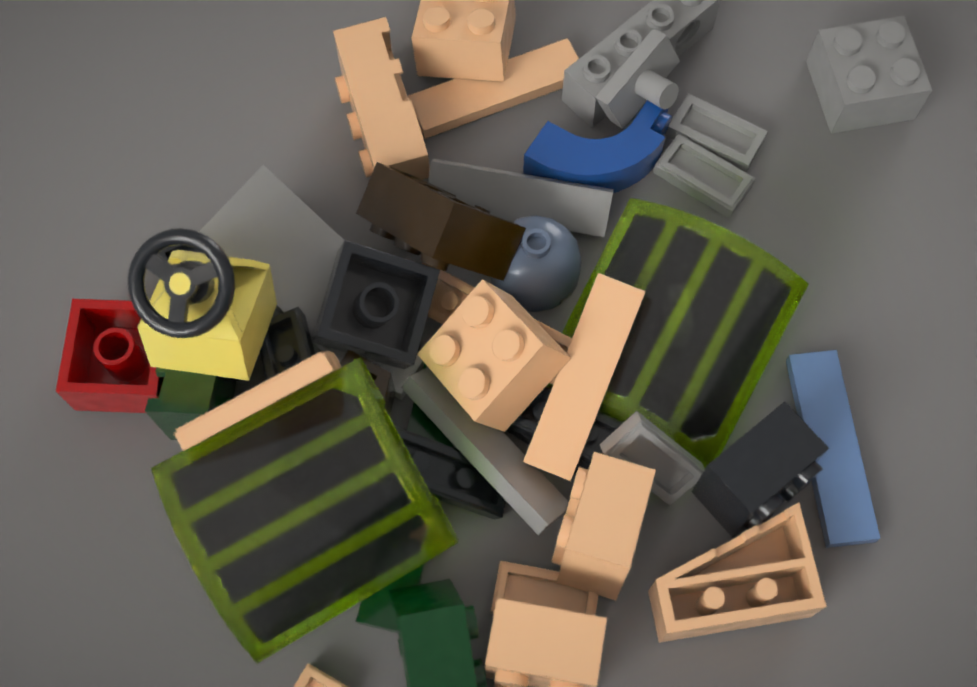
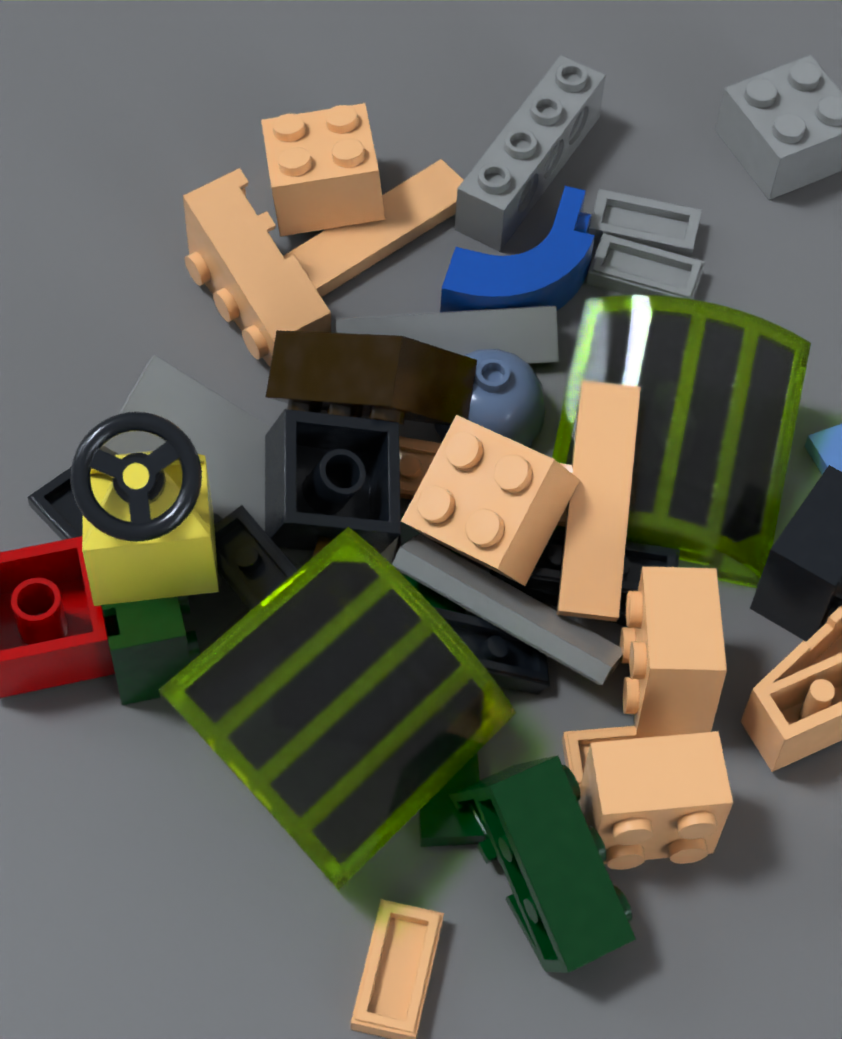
camera: 20 degrees left, 10 degrees down
(257, 399) = (256, 587): light nougat tile -> none
(641, 79) = (547, 179): light grey tile -> none
(648, 446) = (686, 547): light grey tile -> none

